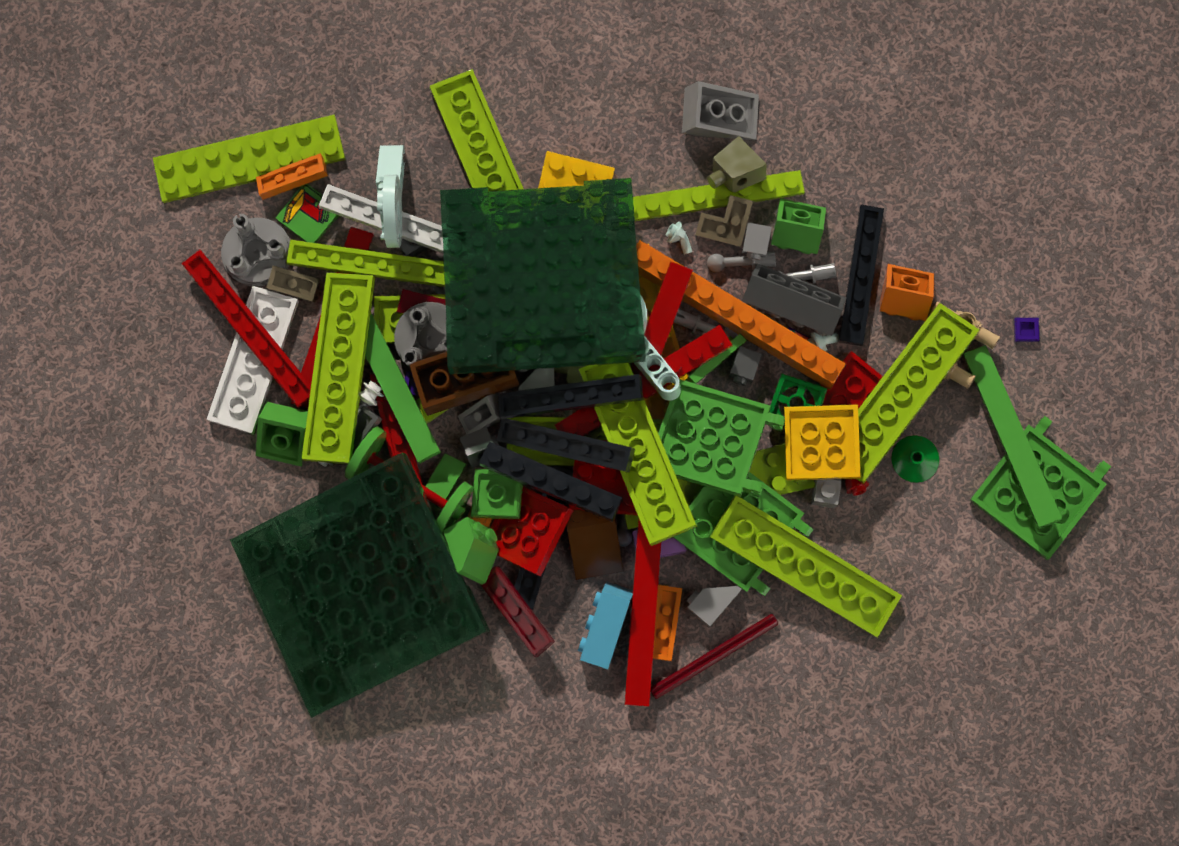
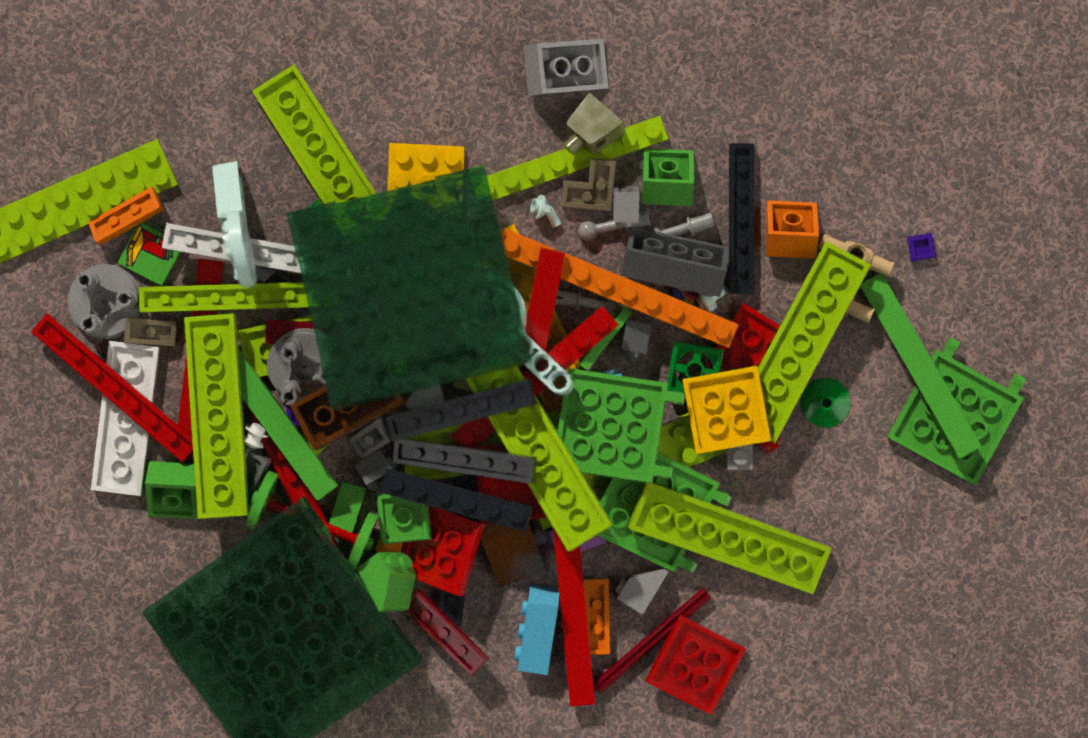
camera: 15 degrees left, 10 degrees up
(753, 685) = (695, 664): none -> red plate

